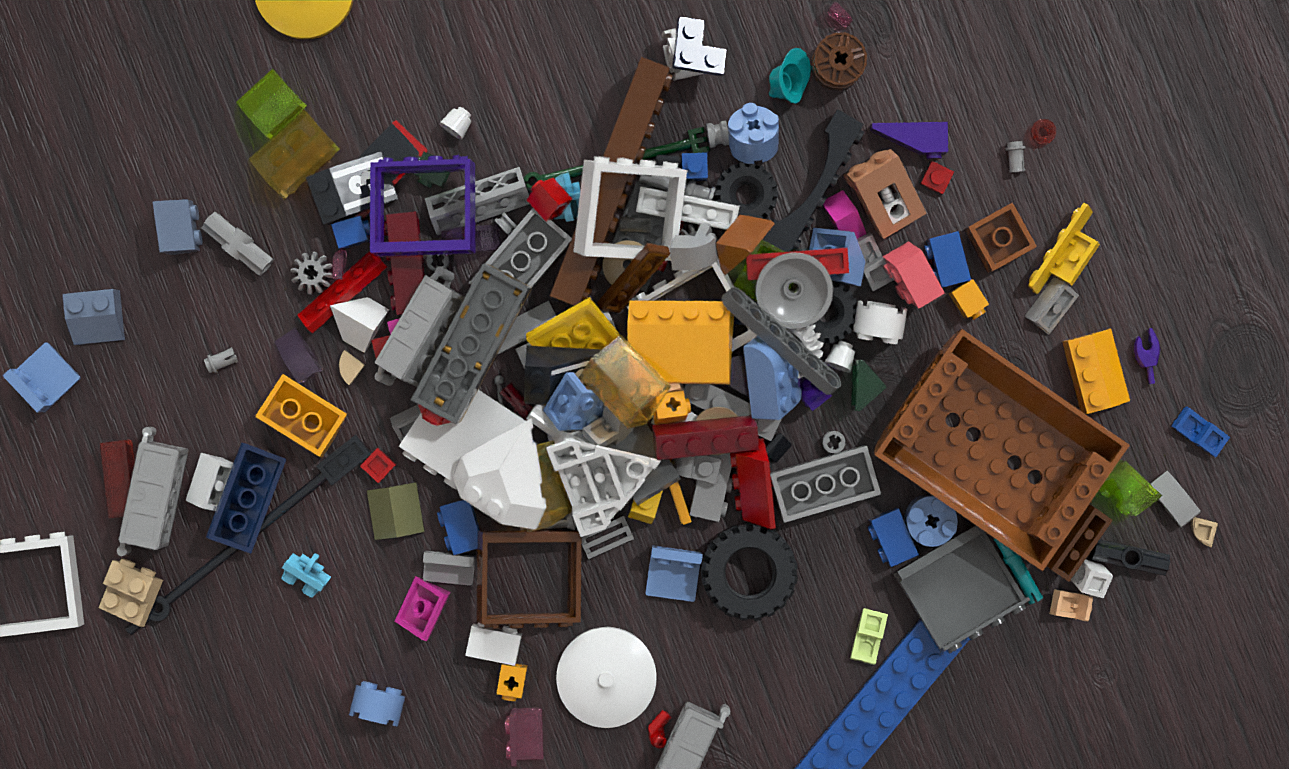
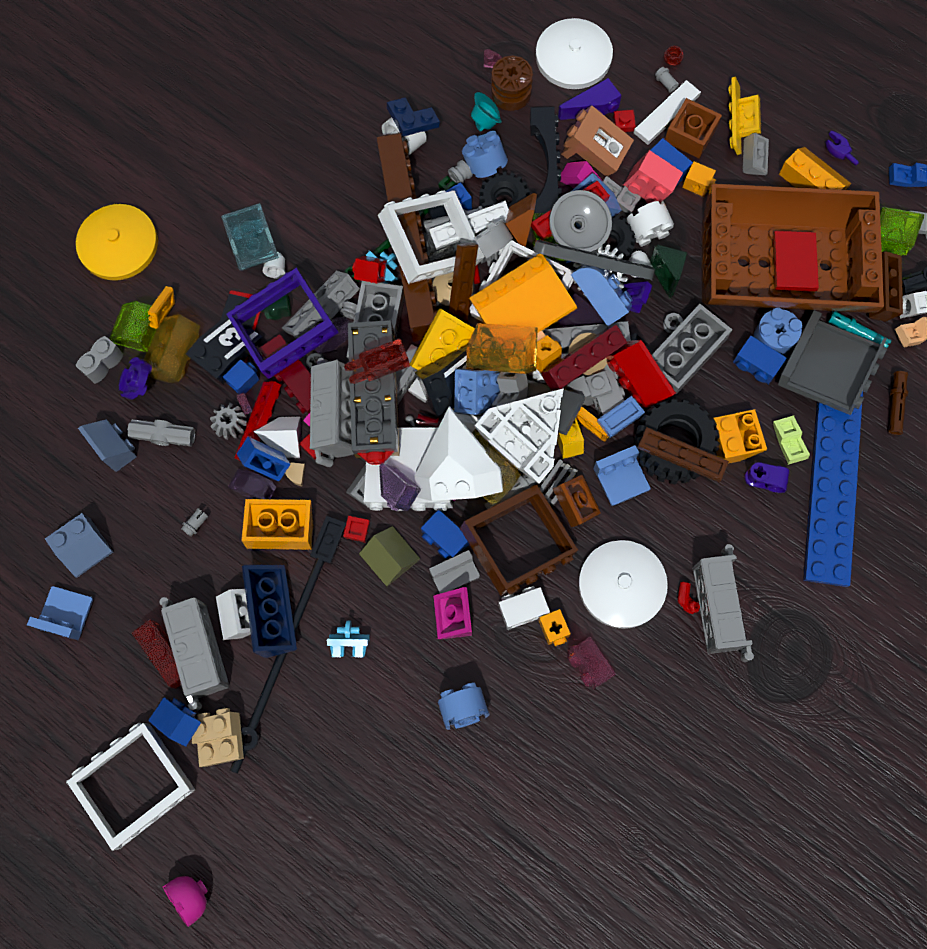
camera: 30 degrees left, 15 degrees down
(25, 722) = (187, 898): none -> dark pink cylinder
(97, 553) = (175, 720): none -> blue brick
(221, 120) = (99, 360): none -> light grey brick
(240, 169) = (134, 379): none -> dark purple plate
(309, 104) = (161, 307): none -> light orange tile
(323, 341) = (263, 459): none -> blue brick
(437, 457) = (397, 488): none -> clear purple slope
(446, 81) = (250, 236): none -> clear light blue slope
(487, 332) = (379, 362): none -> clear red hinge
(613, 571) = (576, 501): none -> dark orange slope
(708, 515) = (620, 416): none -> medium blue tile
(739, 596) = (683, 454): none -> reddish brown tile
(815, 604) = (739, 436): none -> light orange slope
(820, 663) = (769, 477): none -> dark purple piece
(936, 59) = (574, 53): none -> white dish
(990, 196) = (665, 113): none -> white tile
(1002, 456) = (795, 261): none -> red tile
(1002, 665) = (899, 396): none -> reddish brown pin

